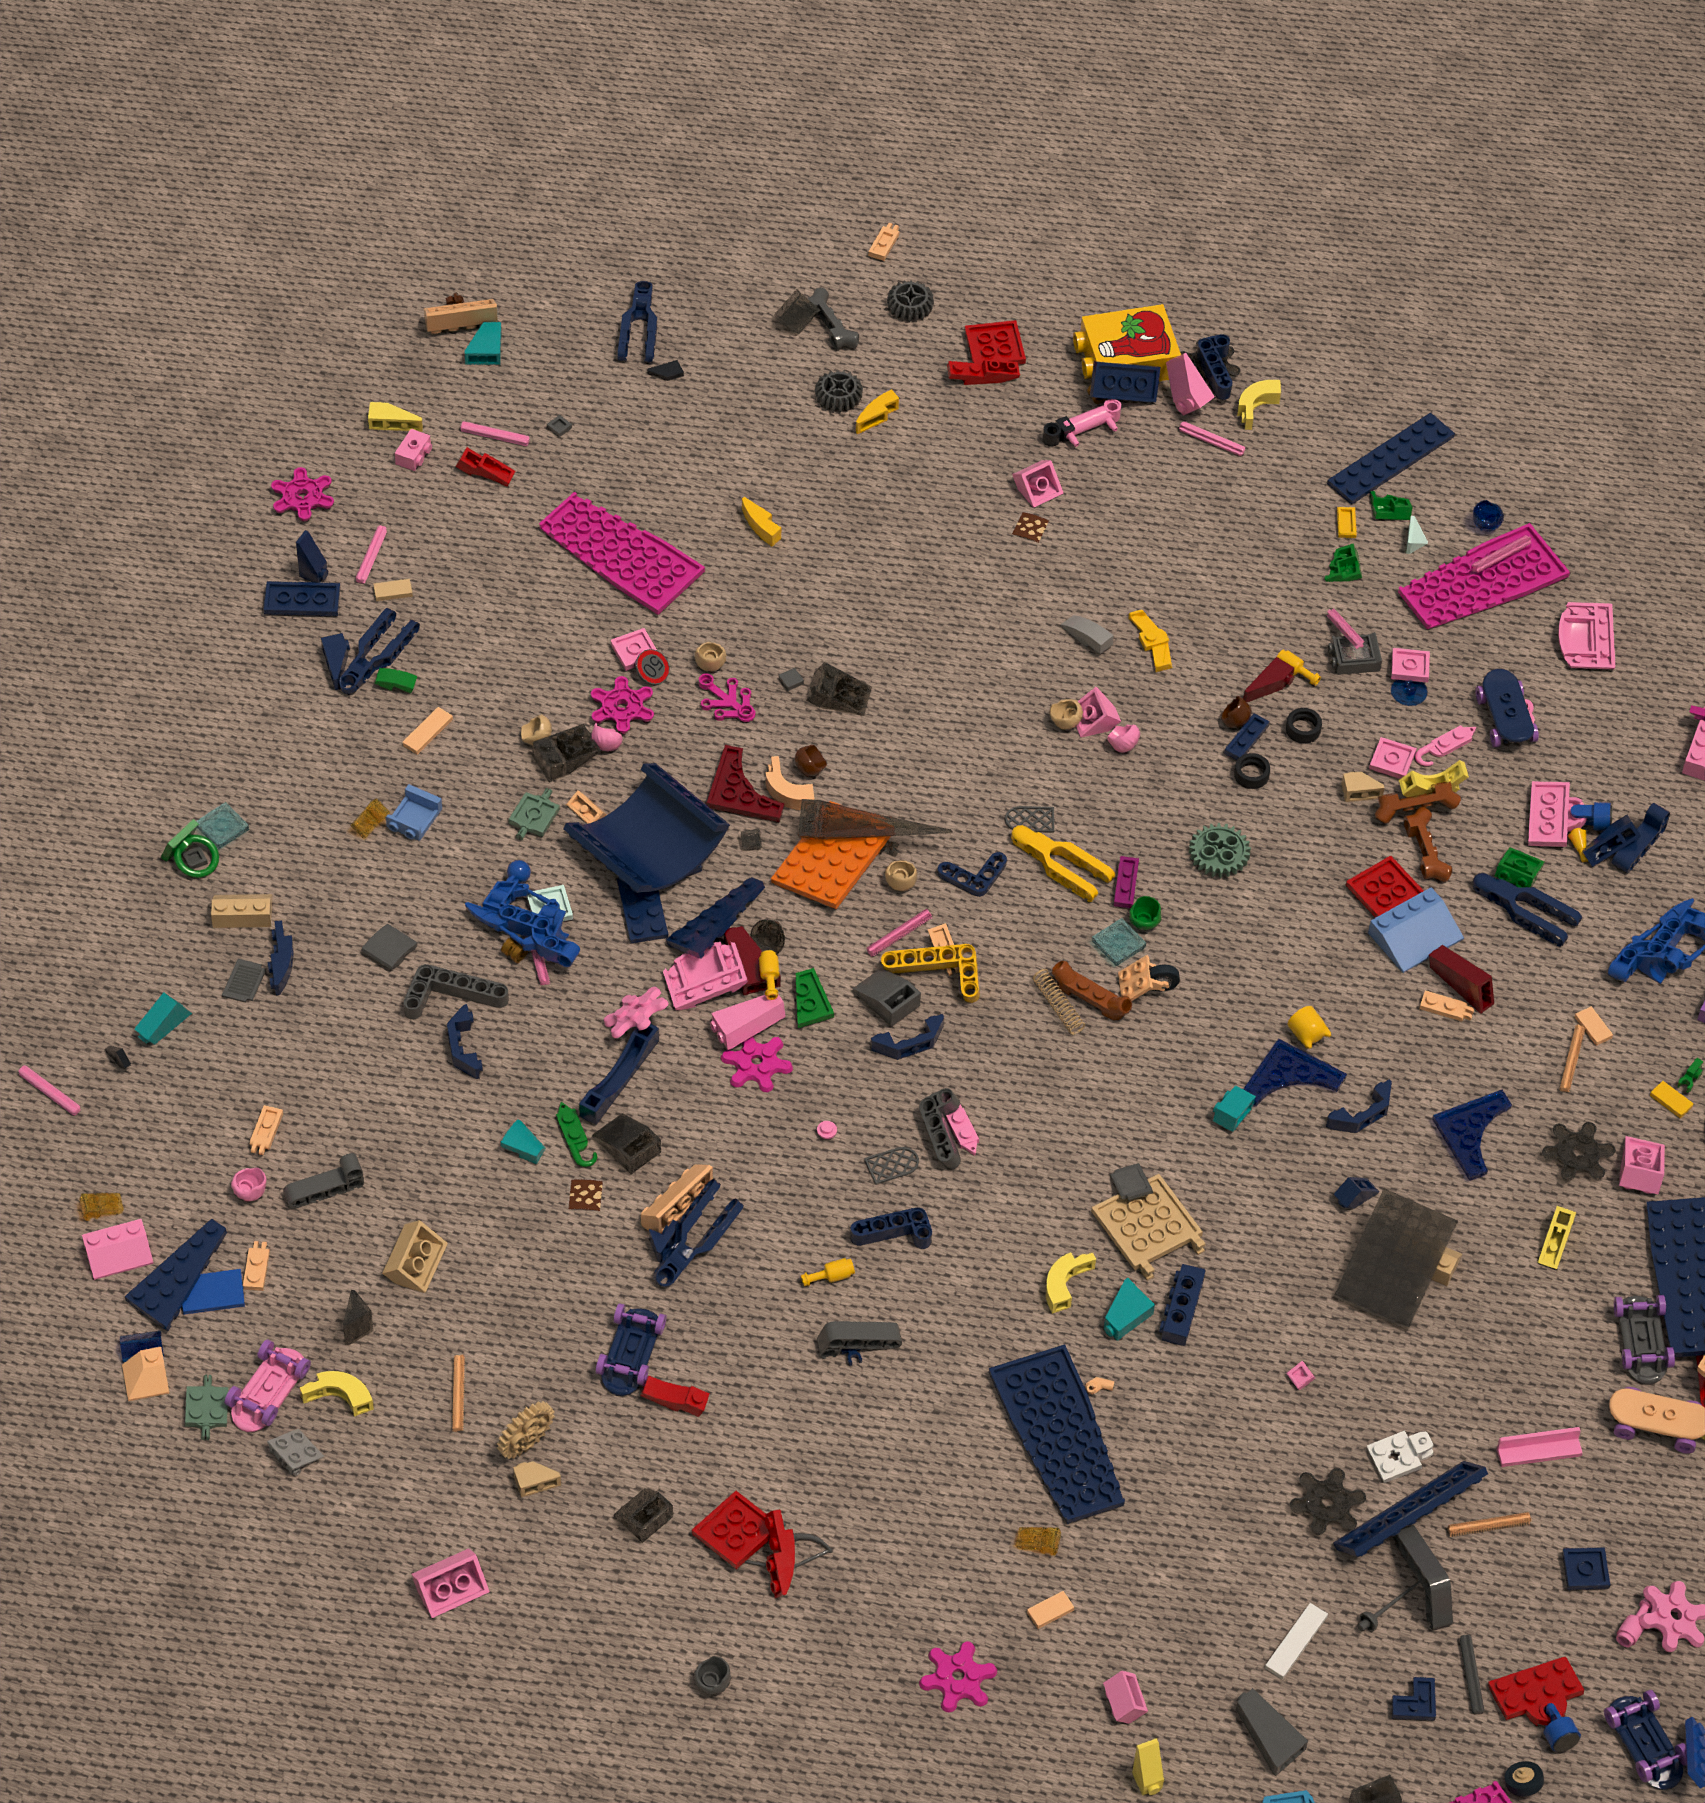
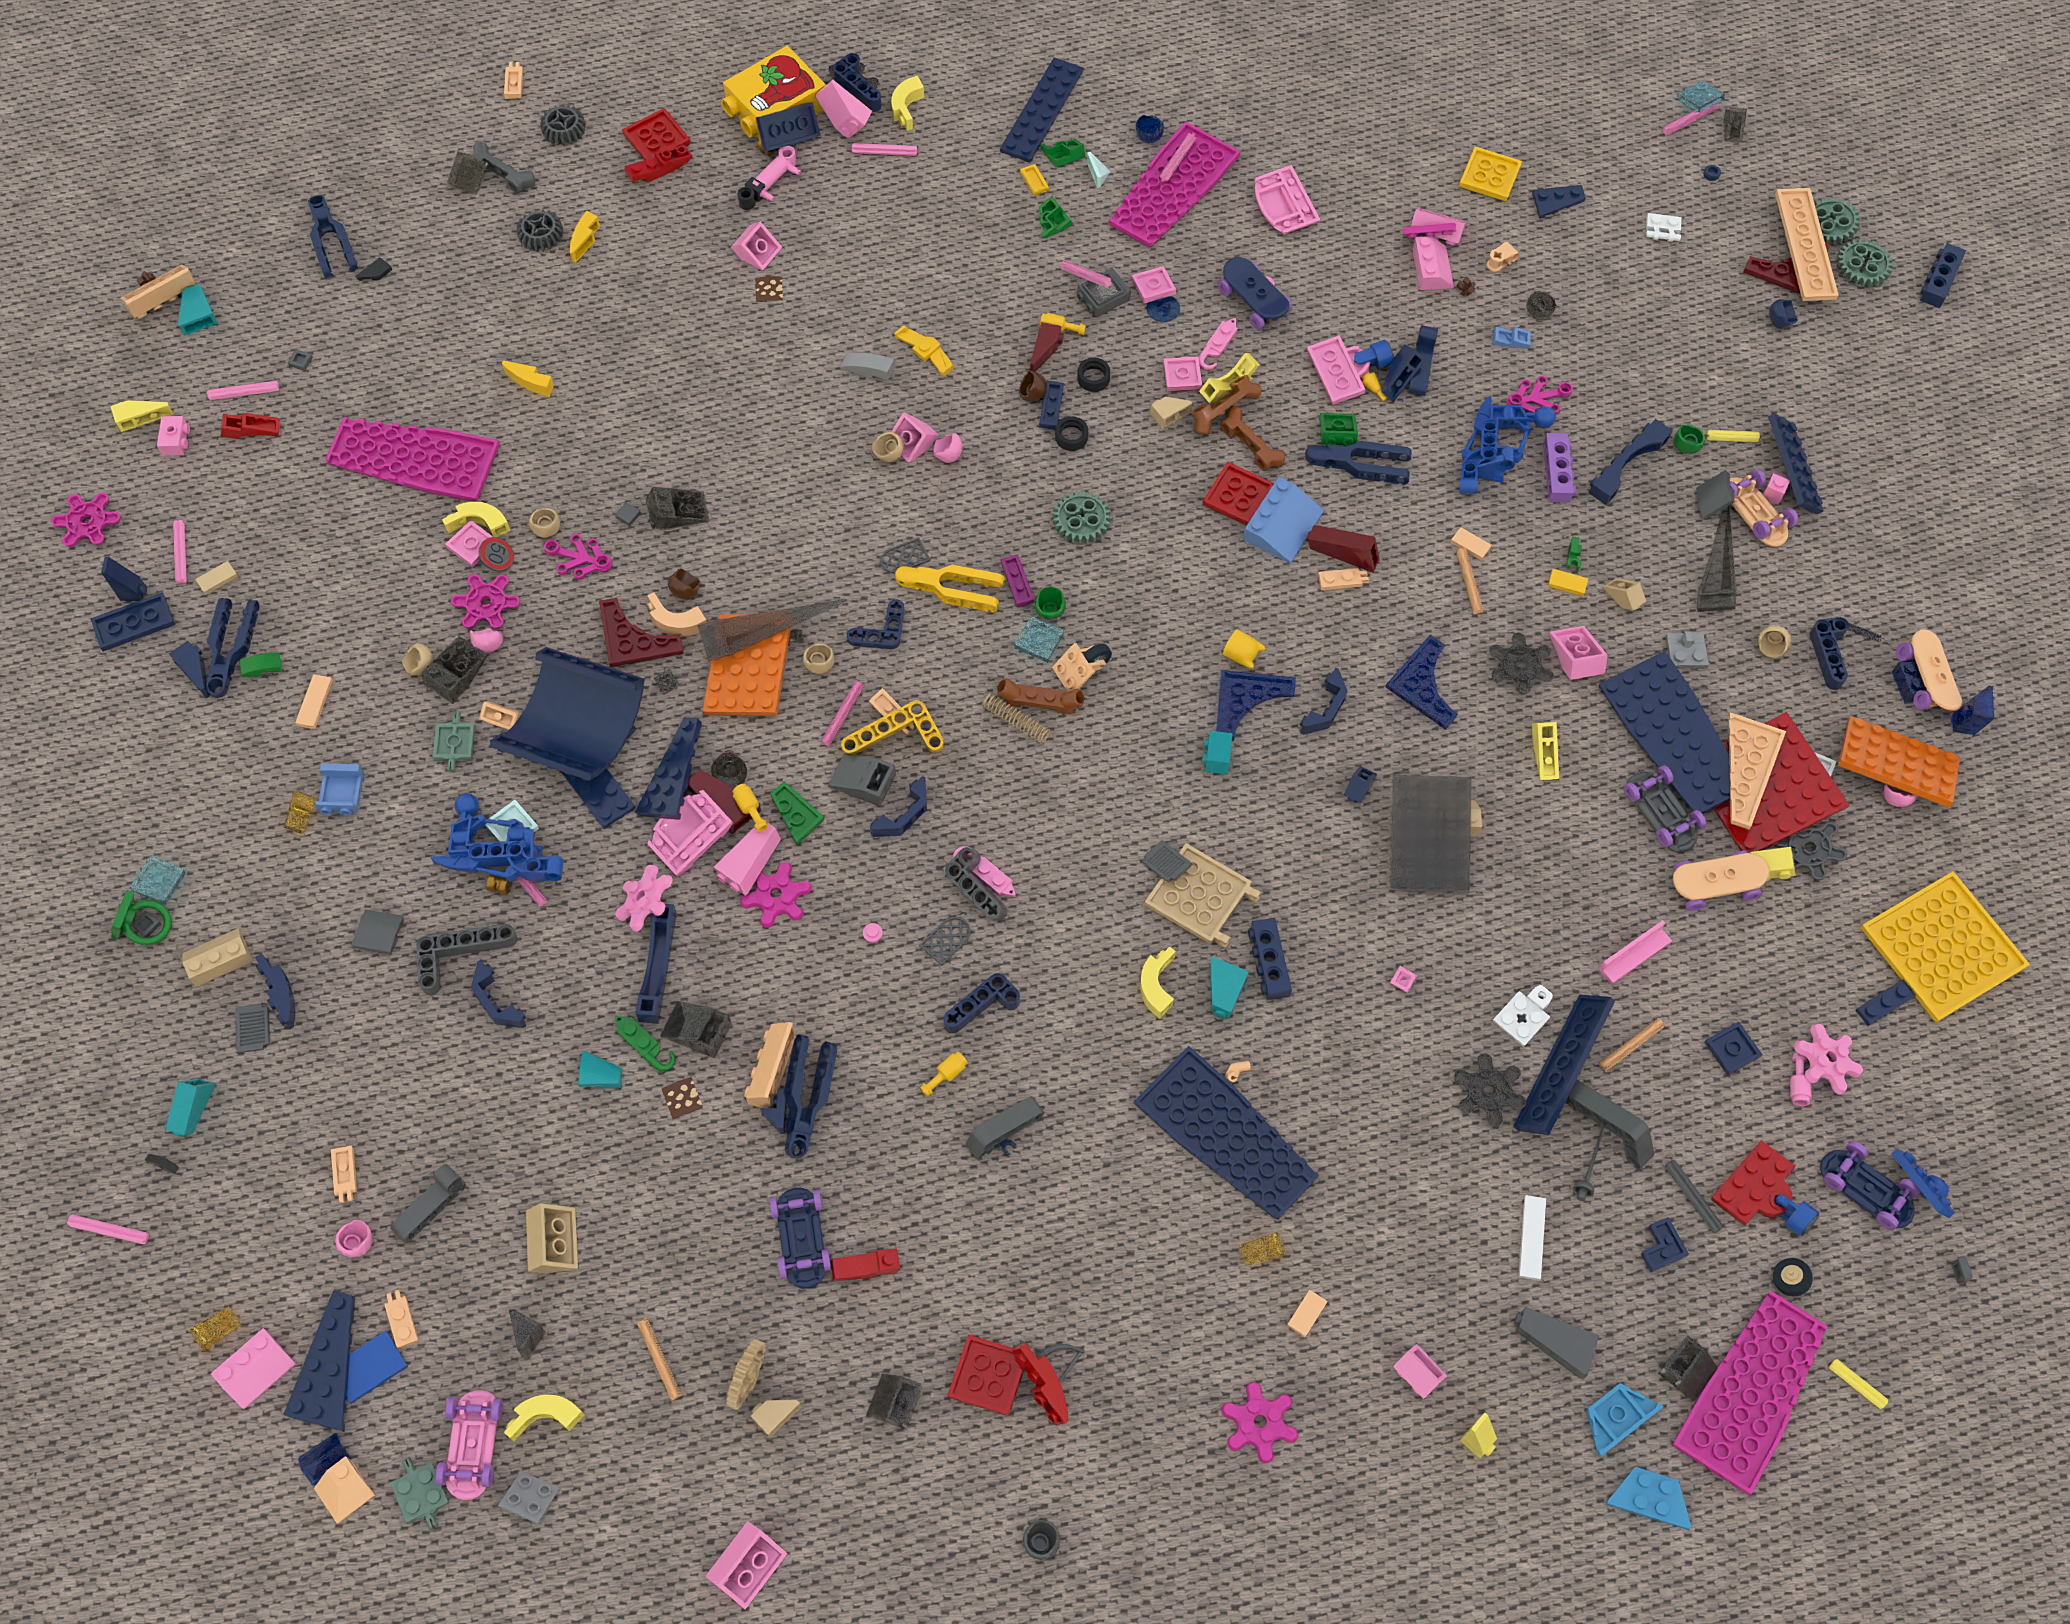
camera: 25 degrees left, 10 degrees up
(654, 624) = (479, 513): none -> light yellow arch

